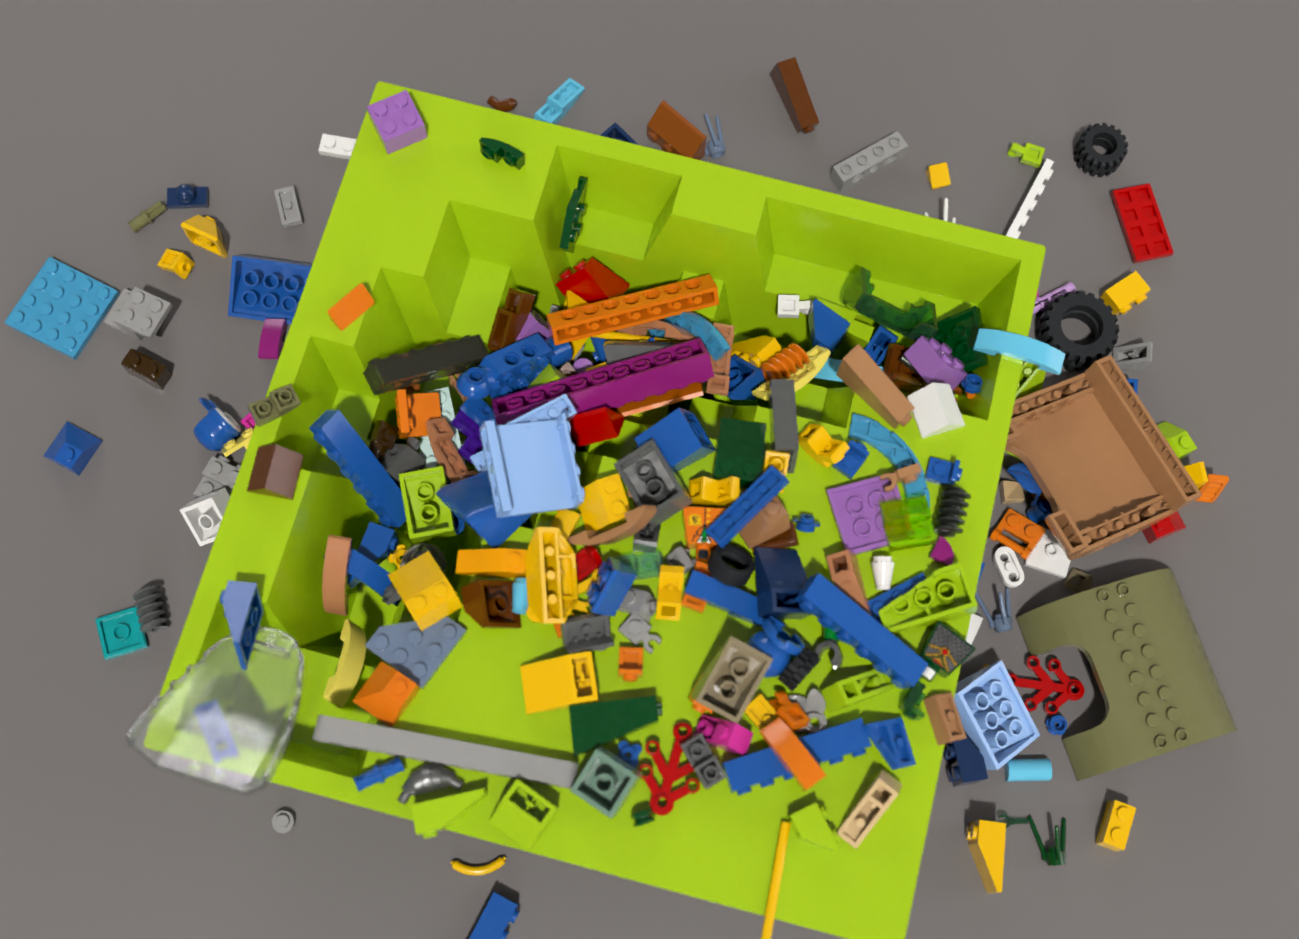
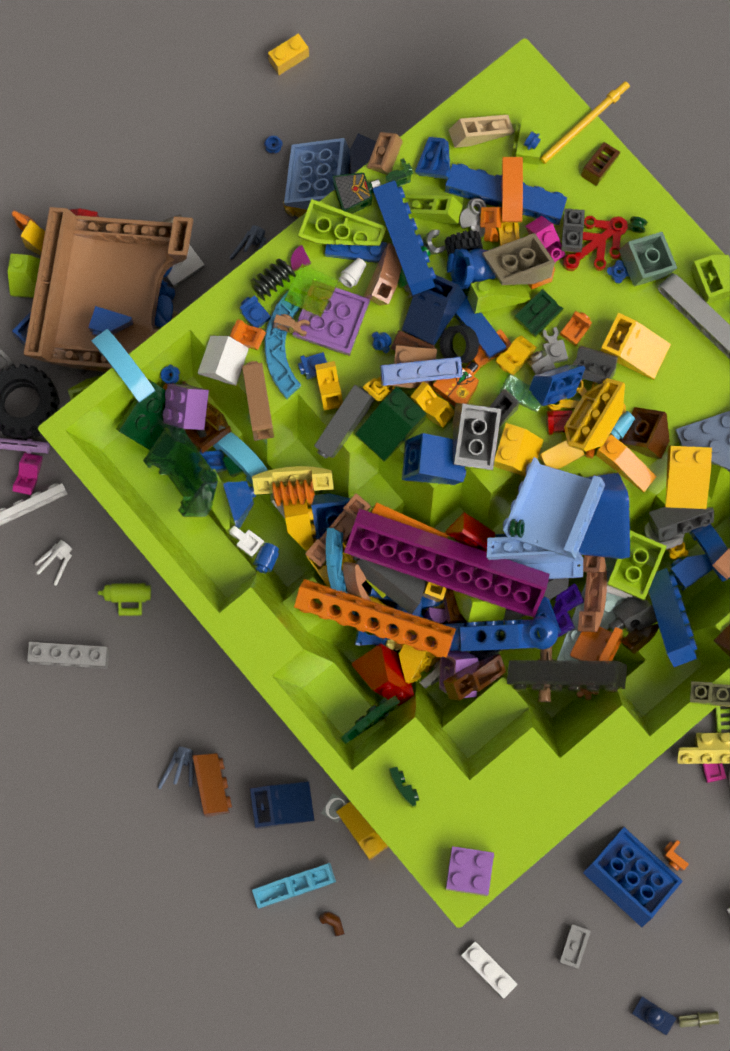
camera: 140 degrees left, 5 degrees up
(176, 262) = (699, 957): yellow bracket -> none
(205, 234) = (659, 964): yellow slope -> none
(245, 325) = (675, 860): none -> orange bracket
(271, 339) = (660, 832): magenta slope -> none
(351, 307) = (605, 734): orange slope -> none
(553, 426) = (517, 528): none -> dark green bush
(608, 721) = (615, 297): dark green slope -> none
(635, 519) = (545, 428): medium nougat slope -> none
(677, 655) = (538, 313): none -> dark green plate
(680, 558) = (492, 374): light grey tile -> none
(726, 839) = (594, 174): none -> reddish brown slope
(739, 625) = (491, 295): none -> lime slope
(765, 303) = (266, 558): none -> blue brick
(794, 95) = (83, 756): reddish brown slope -> none
(809, 824) = (532, 140): none -> blue plate
(933, 444) = (247, 335): none -> orange bracket
(938, 175) = (20, 606): yellow slope -> none
(987, 848) = (387, 98): yellow slope -> none
(1009, 567) = (217, 270): white plate -> none
(1011, 821) = (356, 106): clear green hand -> none
(1022, 529) = (185, 285): orange plate -> none
(1028, 770) = (316, 129): medium azure brick -> none
(1047, 686) = (259, 173): red plant -> none
(1055, 855) = (344, 66): dark green plant -> none
(1066, 433) = (106, 319): none -> blue slope
(1147, 667) = (181, 134): olive slope -> none

